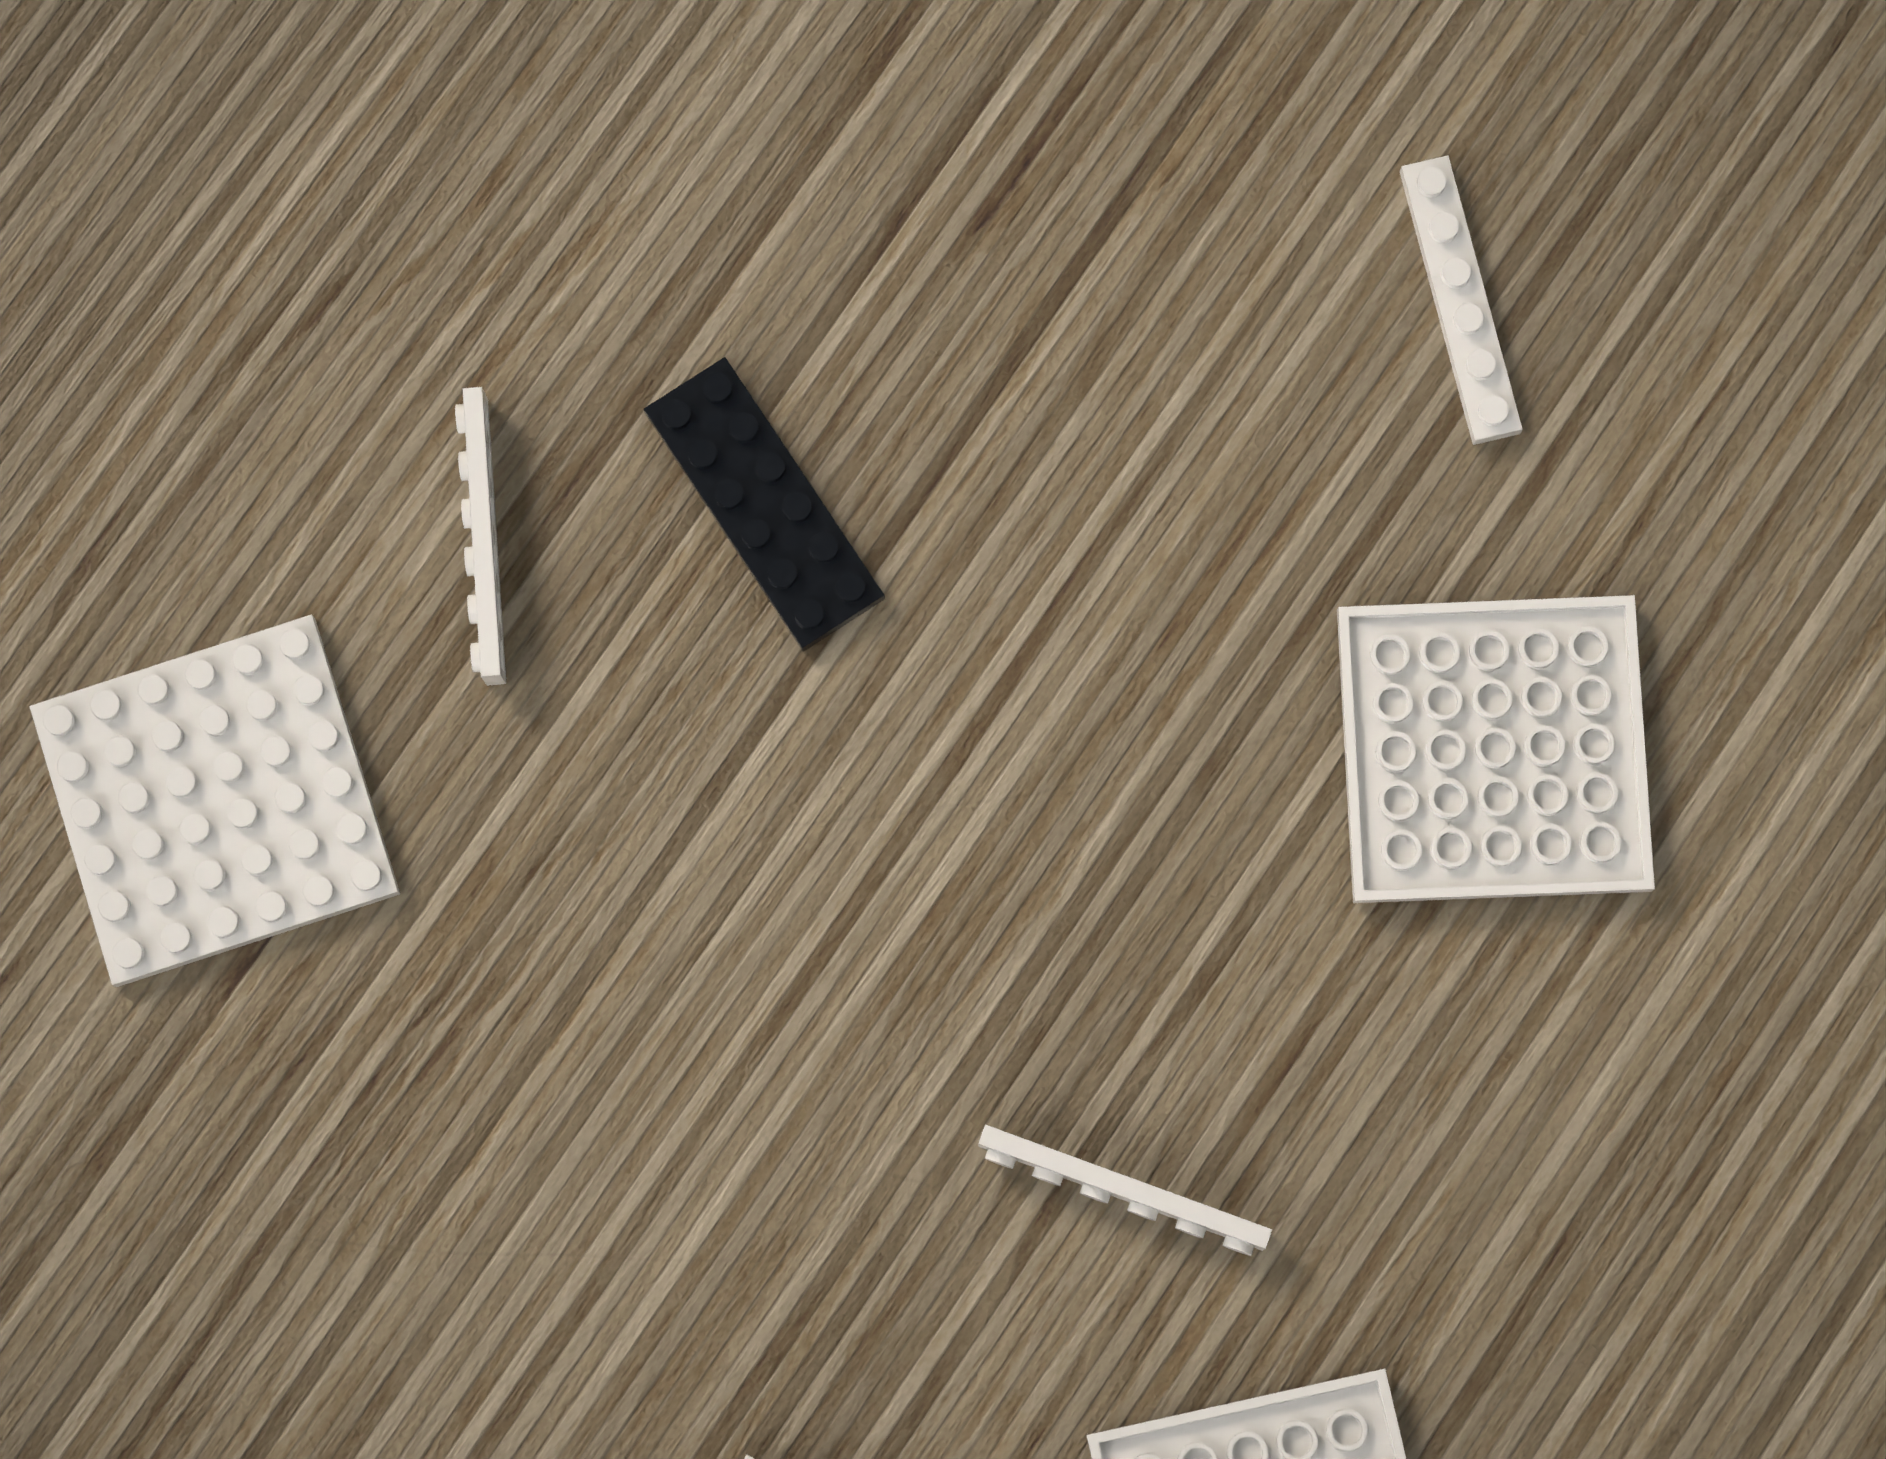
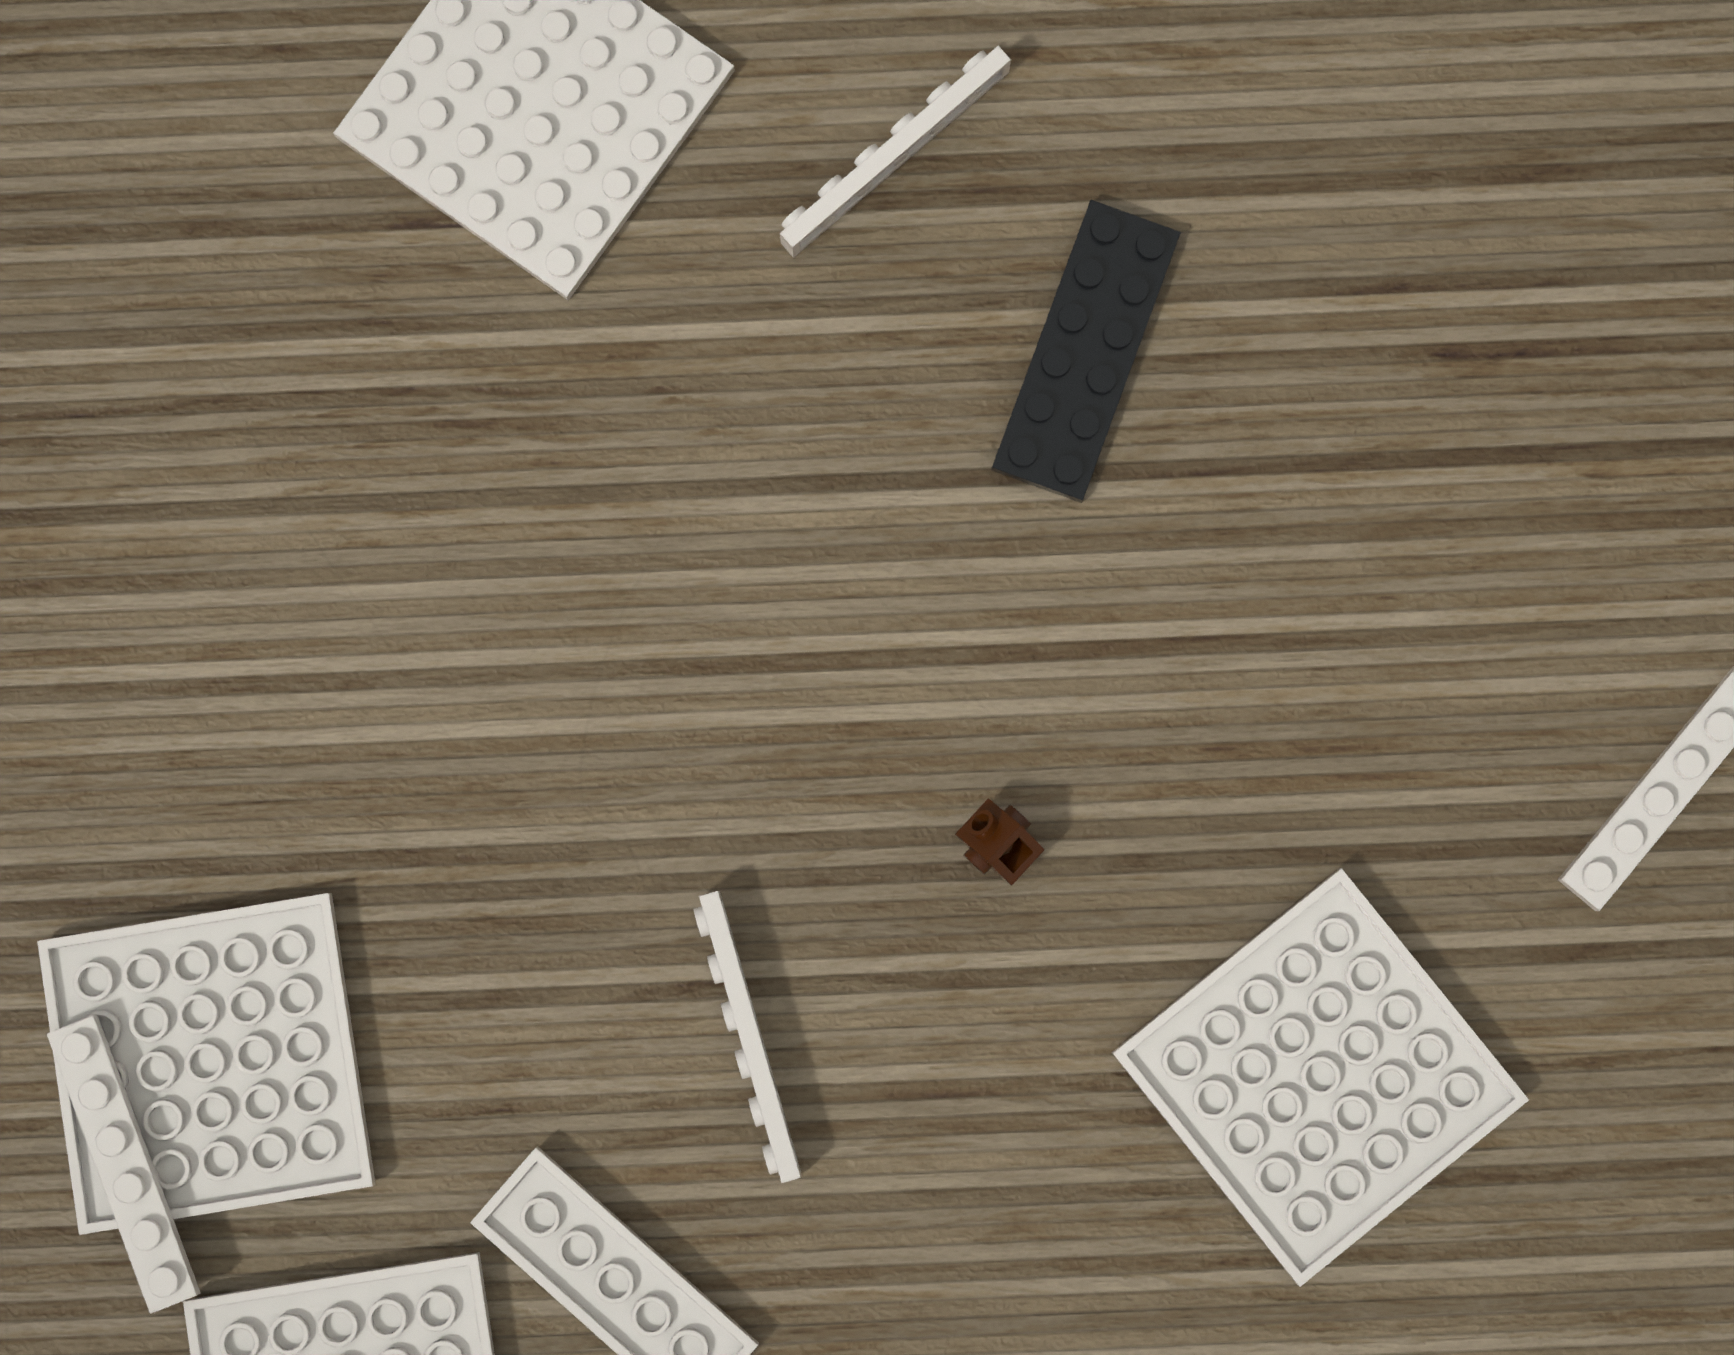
camera: 50 degrees right, 5 degrees up
(1104, 867) = (990, 837): none -> reddish brown brick

